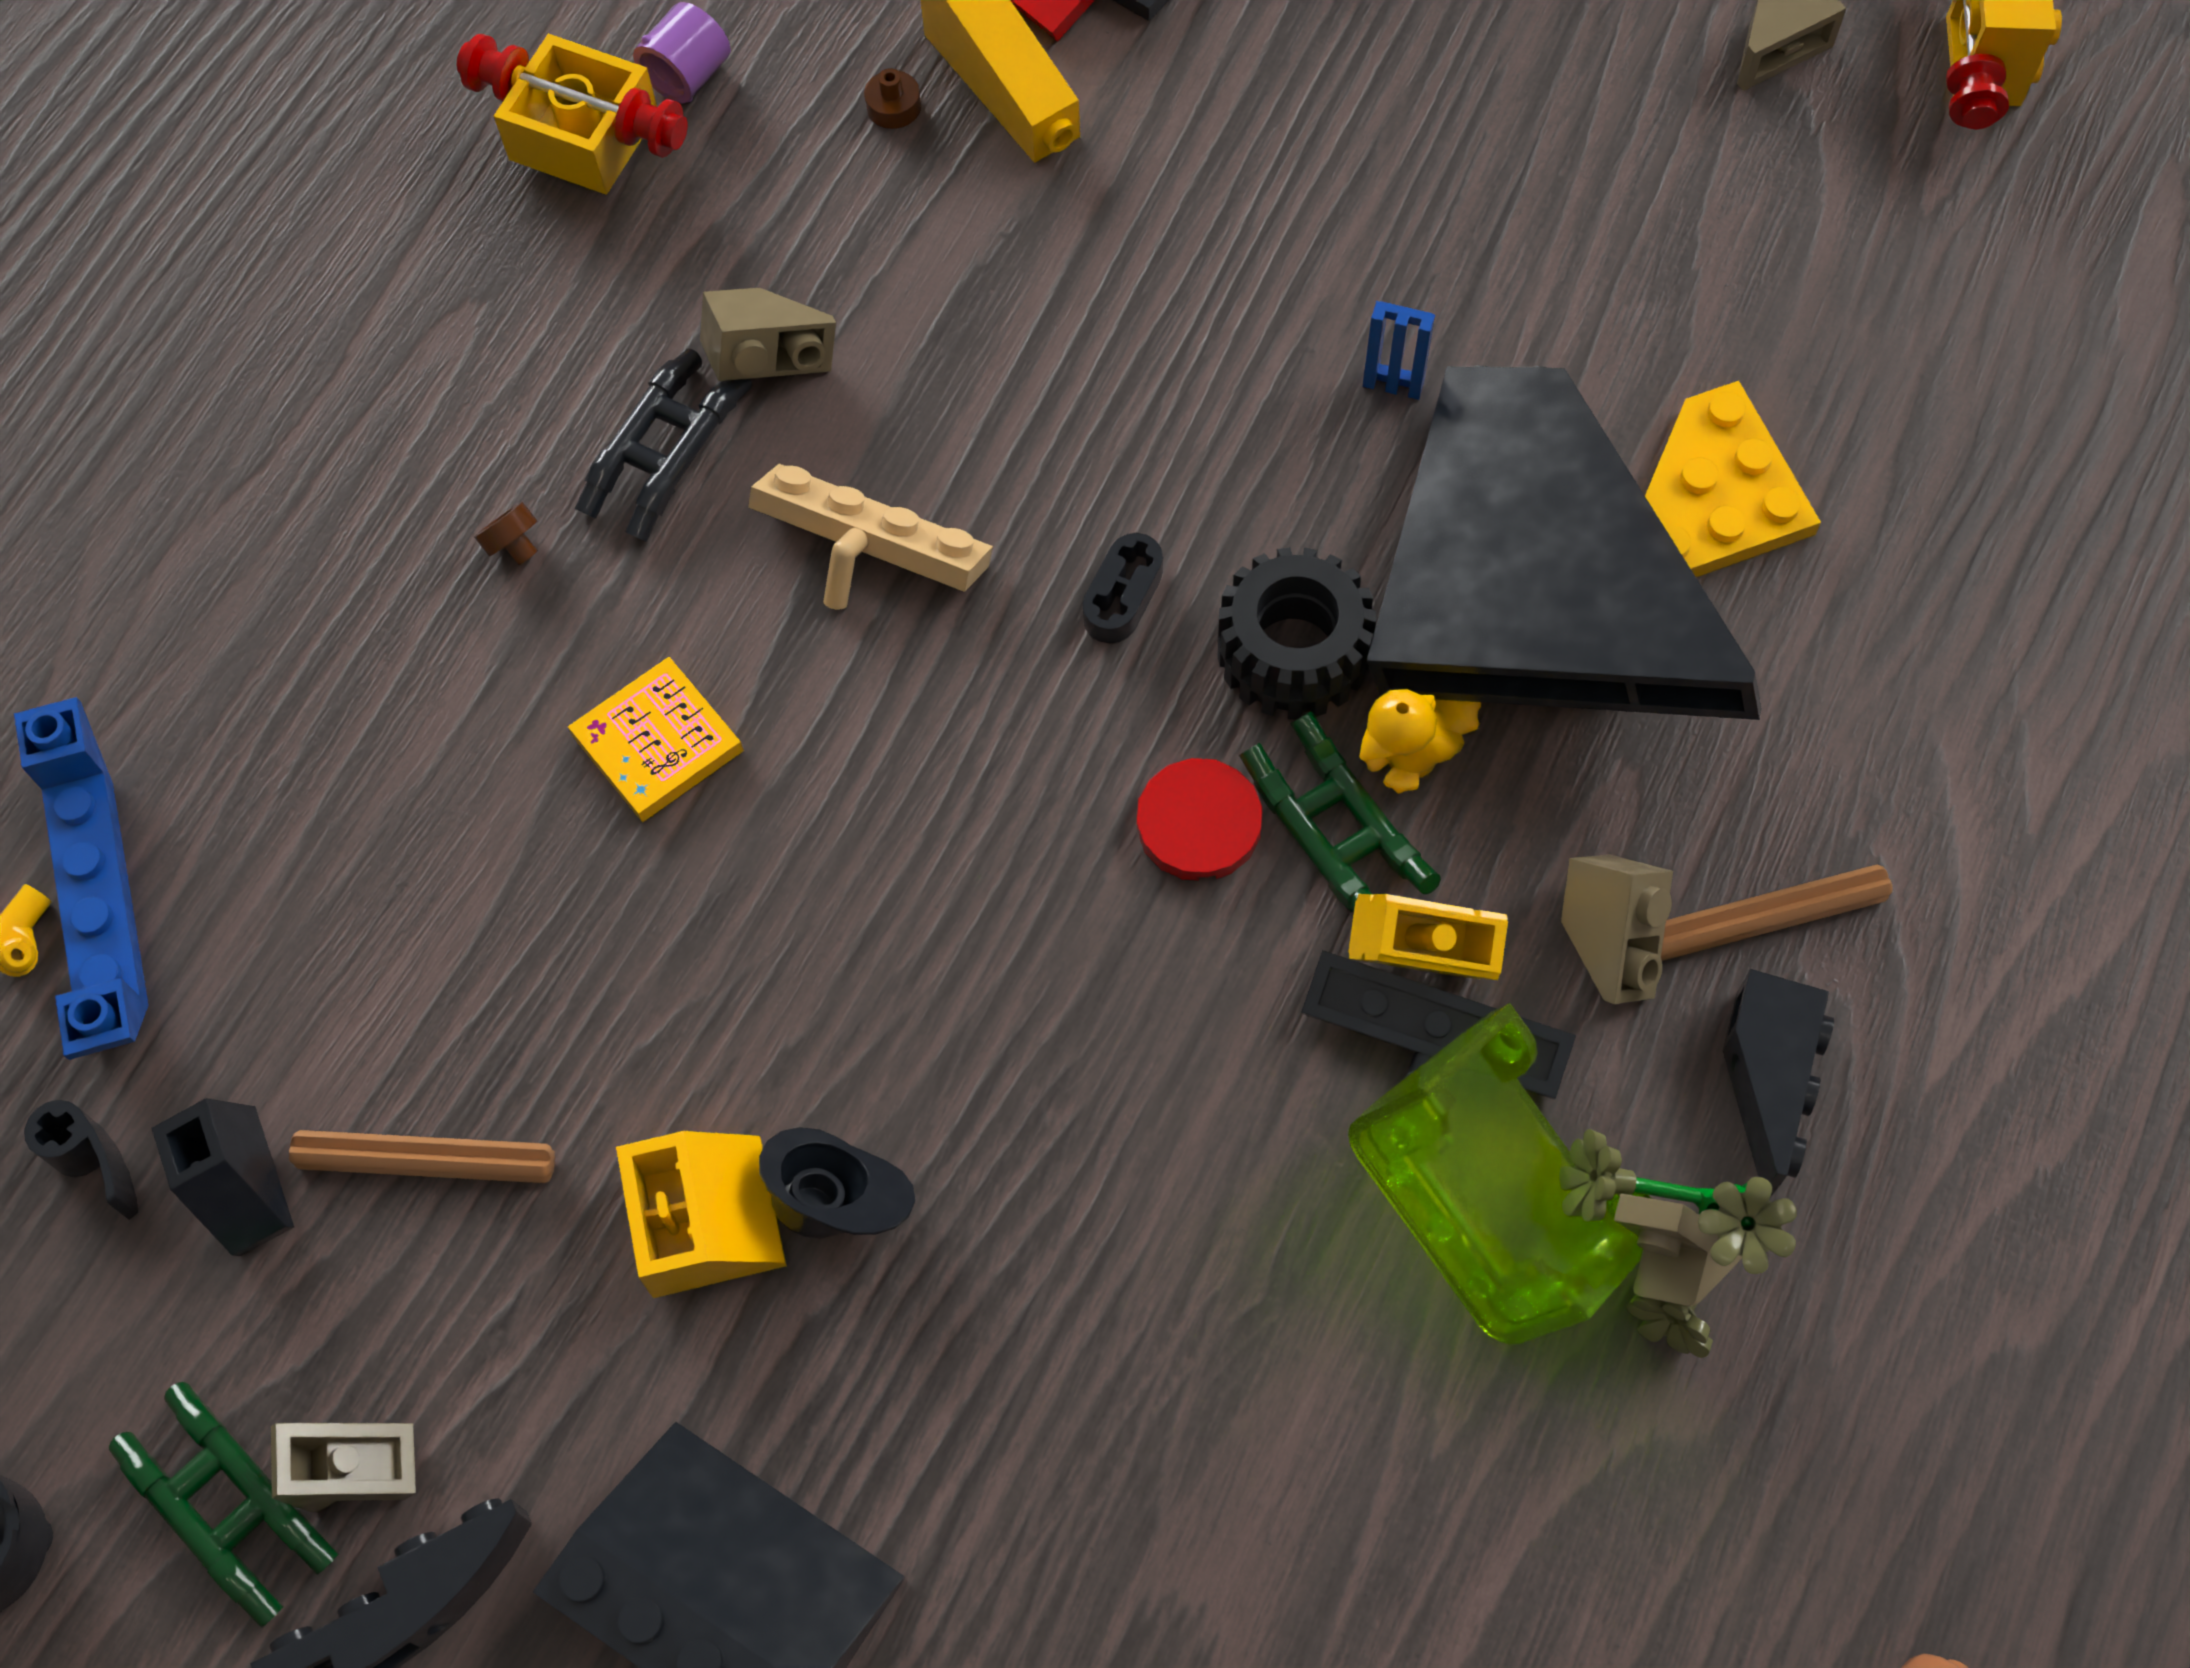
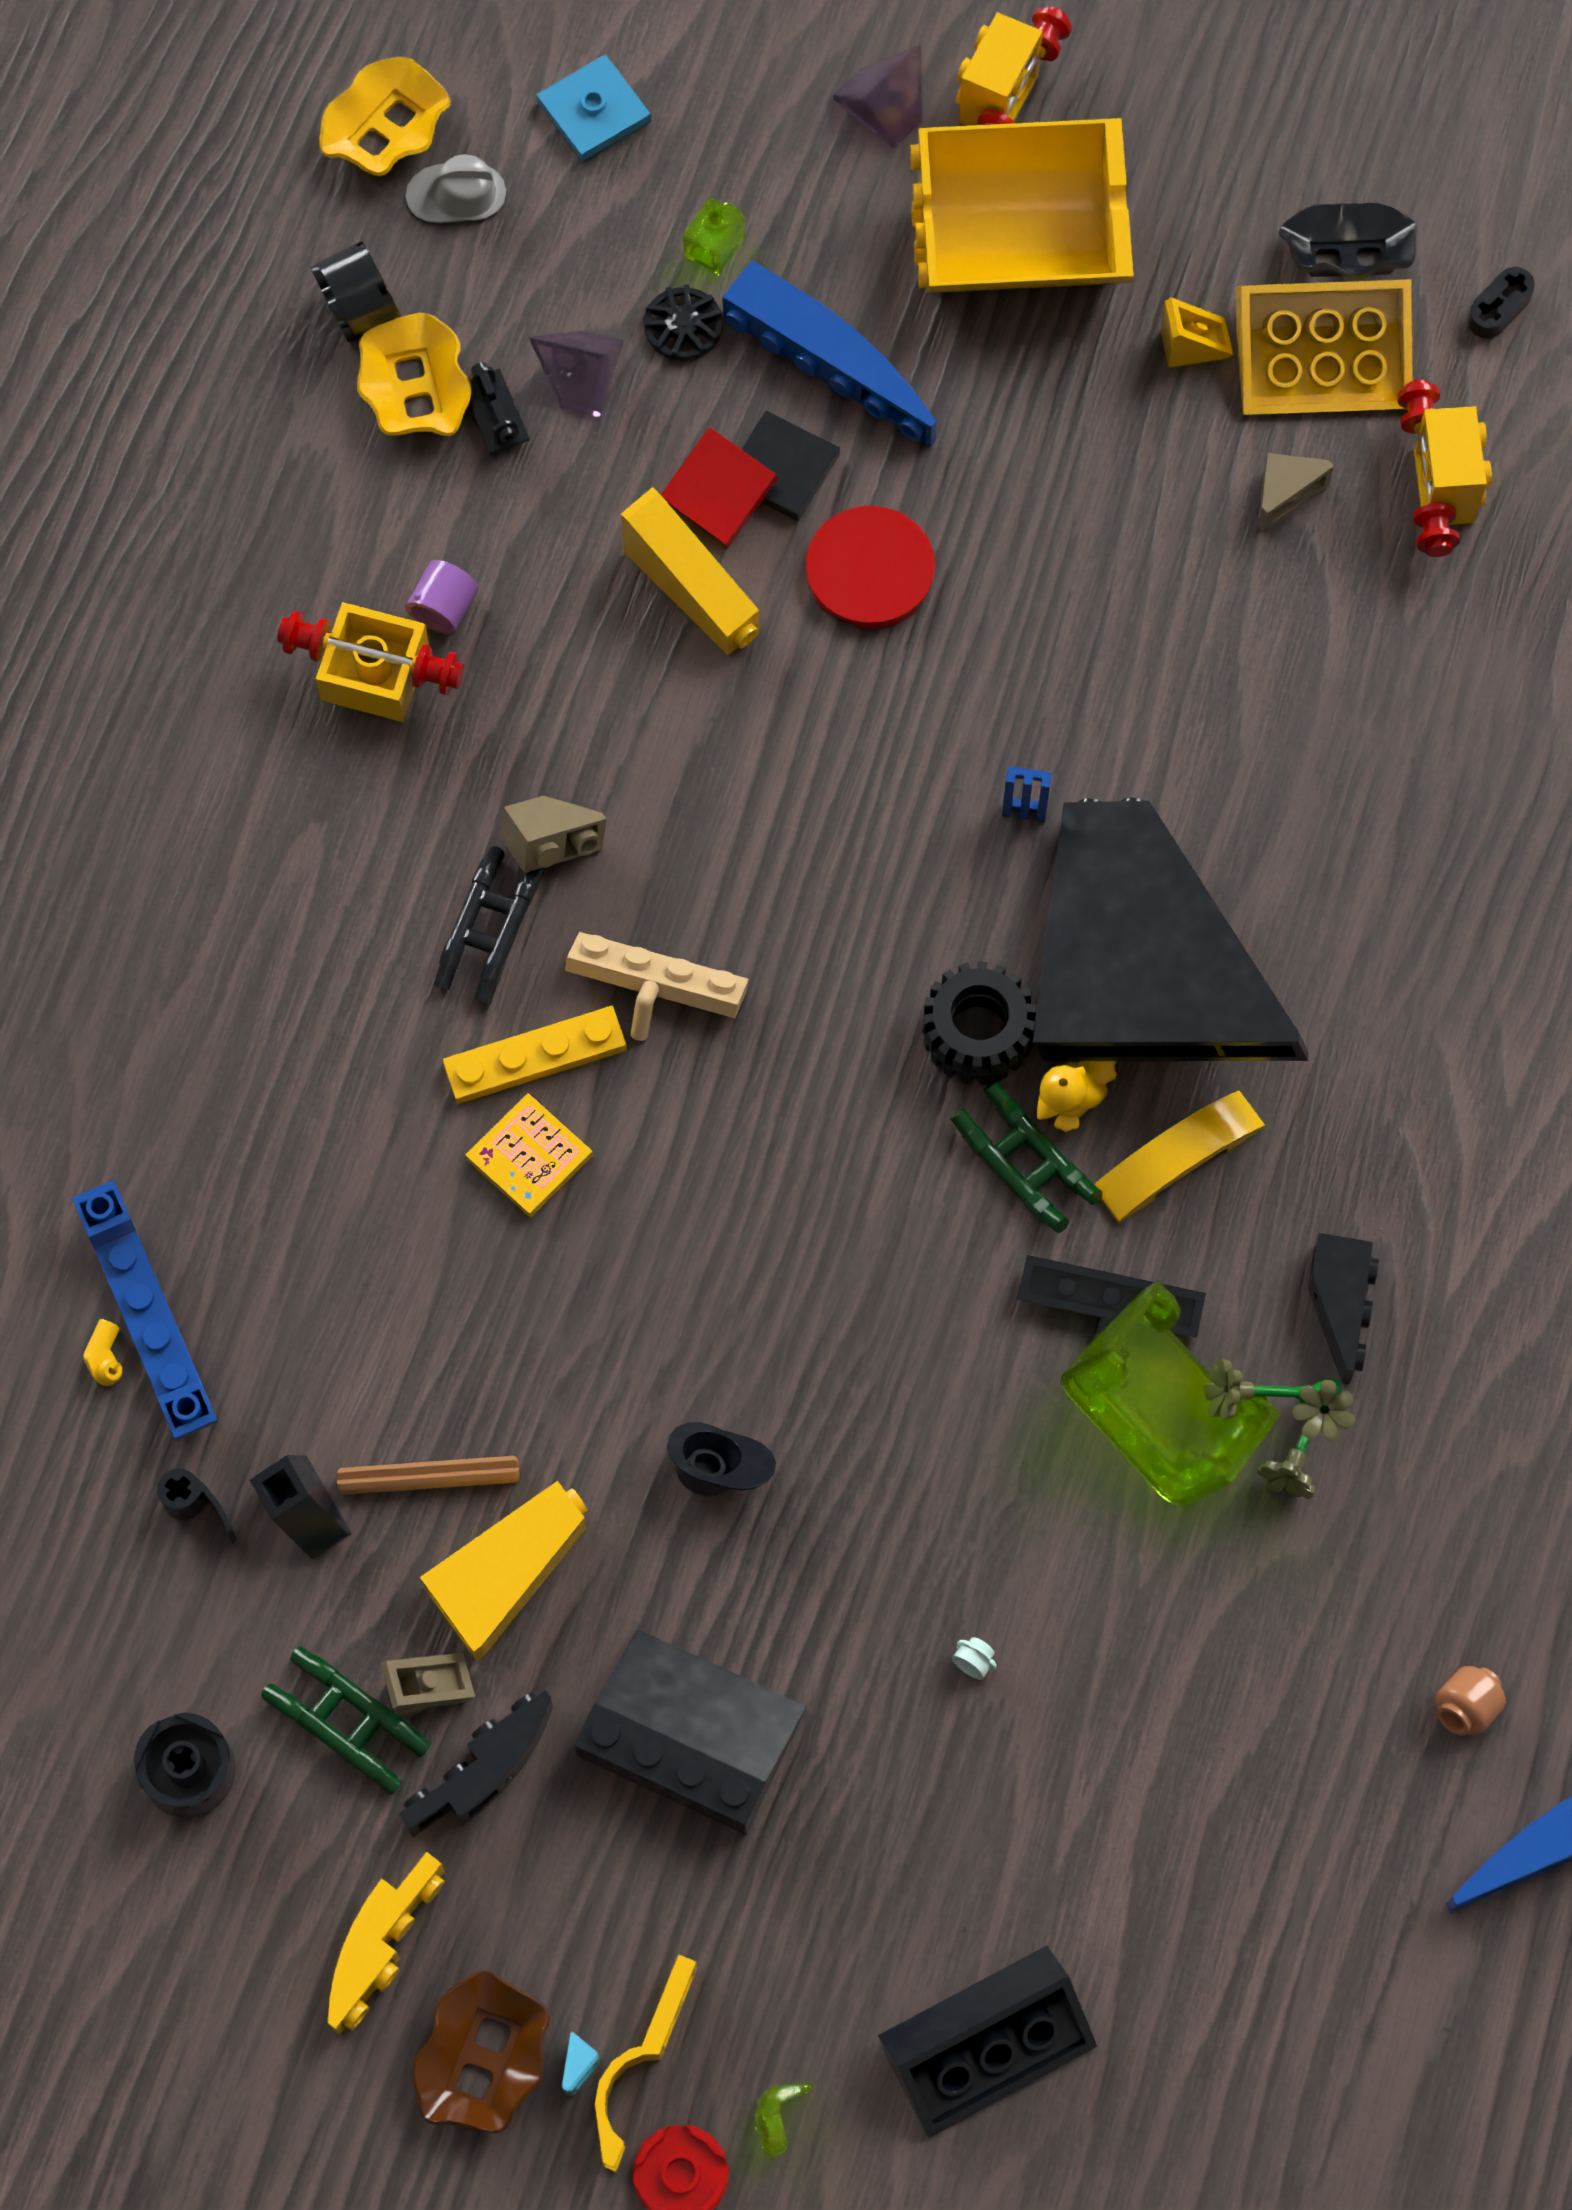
camera: 10 degrees left, 5 degrees up
(495, 1305) = (502, 1568): none -> yellow slope
(509, 532) = (390, 1011): reddish brown tile -> none
(689, 611) = (534, 1054): none -> yellow plate
(698, 1210) = (630, 1486): yellow slope -> none
(892, 99) = (610, 614): reddish brown tile -> none
(1112, 582) = (857, 1002): black beam -> none
(1167, 1535) = (974, 1658): none -> light aqua plate
(1199, 819) = (927, 1168): red tile -> none
(1231, 77) = (870, 566): none -> red tile
(1428, 936) = (1098, 1237): yellow brick -> none
(1544, 838) = (1177, 1153): none -> yellow slope
(1618, 923) = (1226, 1210): dark tan slope -> none
(1675, 1252) = (1282, 1433): dark tan slope -> none
(1726, 484) = (1272, 870): yellow plate -> none
(1775, 911) = (1329, 1188): medium nougat axle -> none

